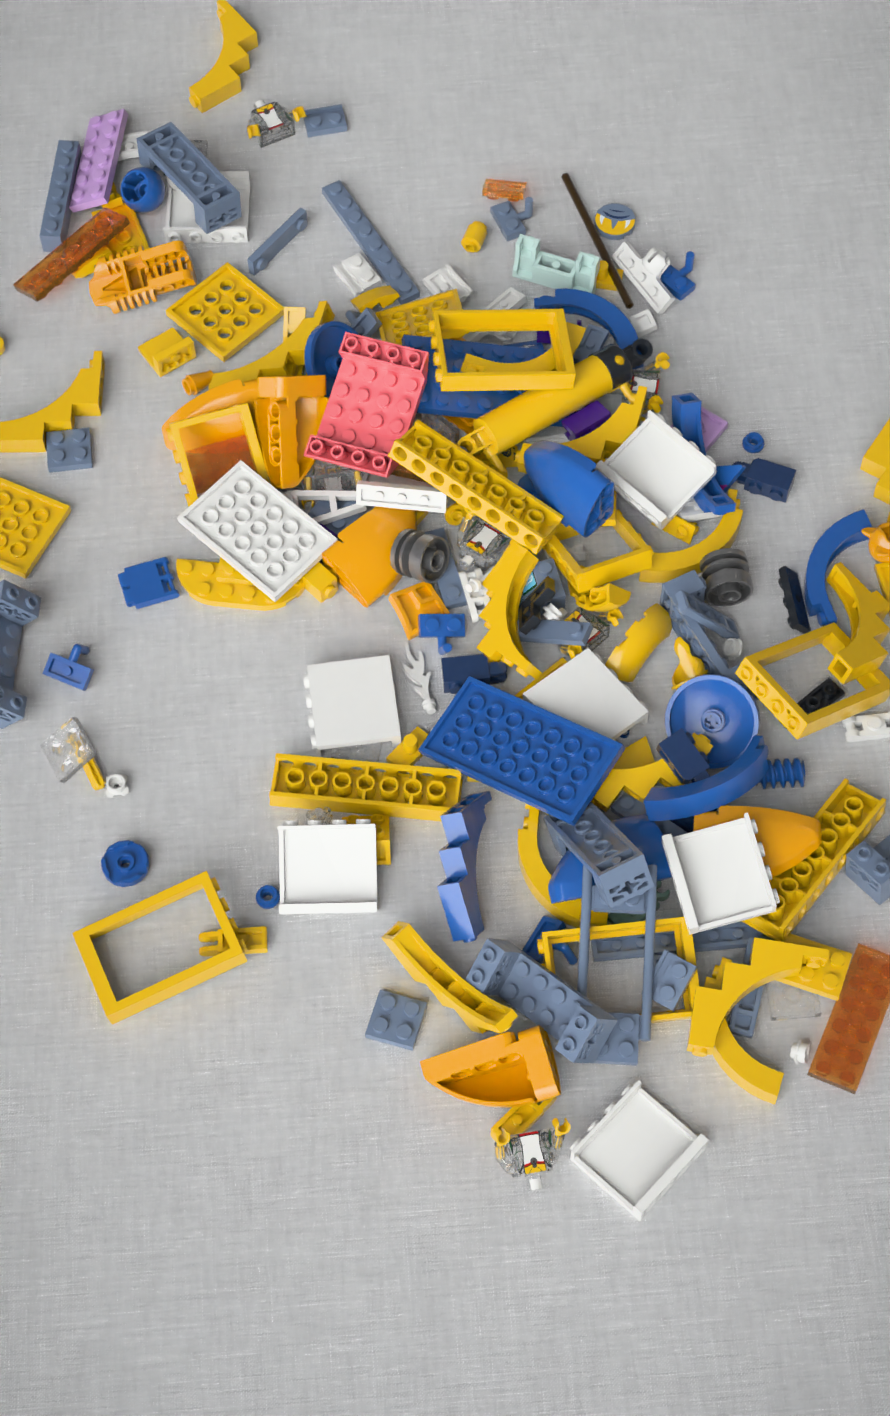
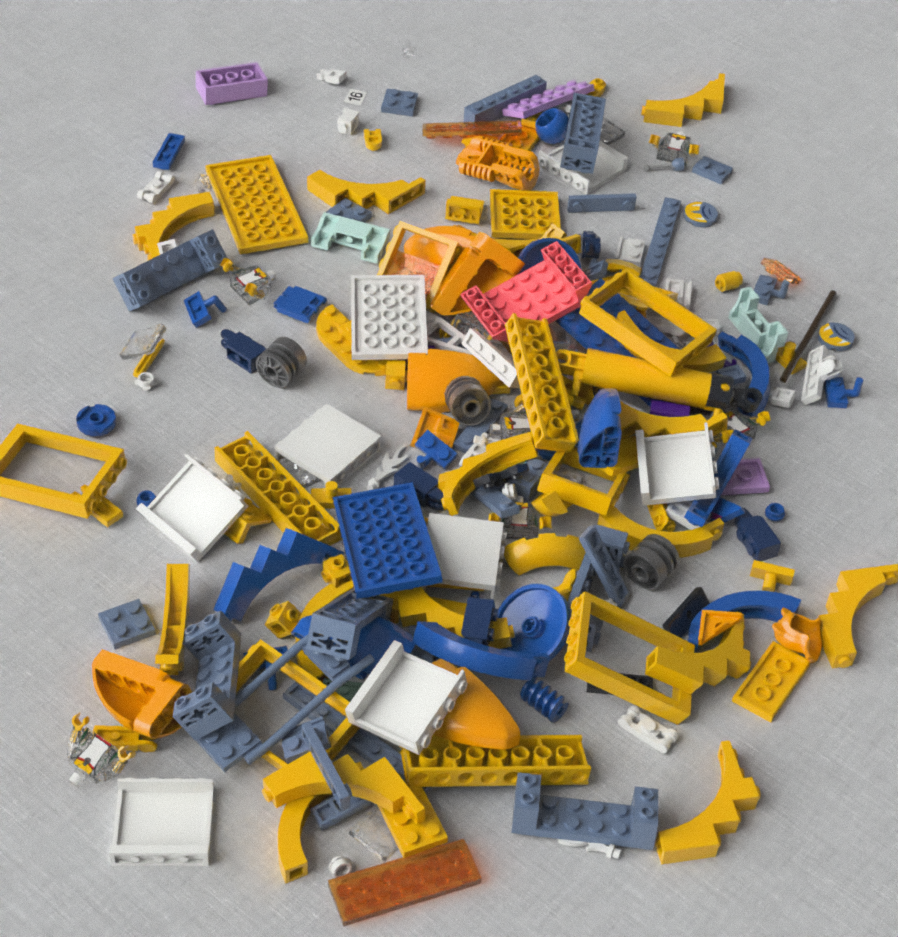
camera: 40 degrees right, 15 degrees down
(79, 600) = (249, 282): none -> torso
(107, 467) = (351, 233): none -> light aqua bracket
(117, 102) = (599, 87): none -> yellow plate
(161, 676) = (241, 349): none -> dark blue hinge
(218, 659) = (281, 362): none -> flat silver wheel
(291, 140) = (677, 165): none -> hinge
(336, 297) = (590, 245): none -> dark blue hinge
(369, 181) = (700, 214): none -> tile
(506, 813) = (336, 571): none -> yellow brick
(518, 895) = (283, 619): none -> yellow brick
(760, 996) = (313, 741): none -> sand blue plate
(814, 505) = (771, 574): none -> yellow tile
(832, 590) = (716, 622): none -> light orange tile

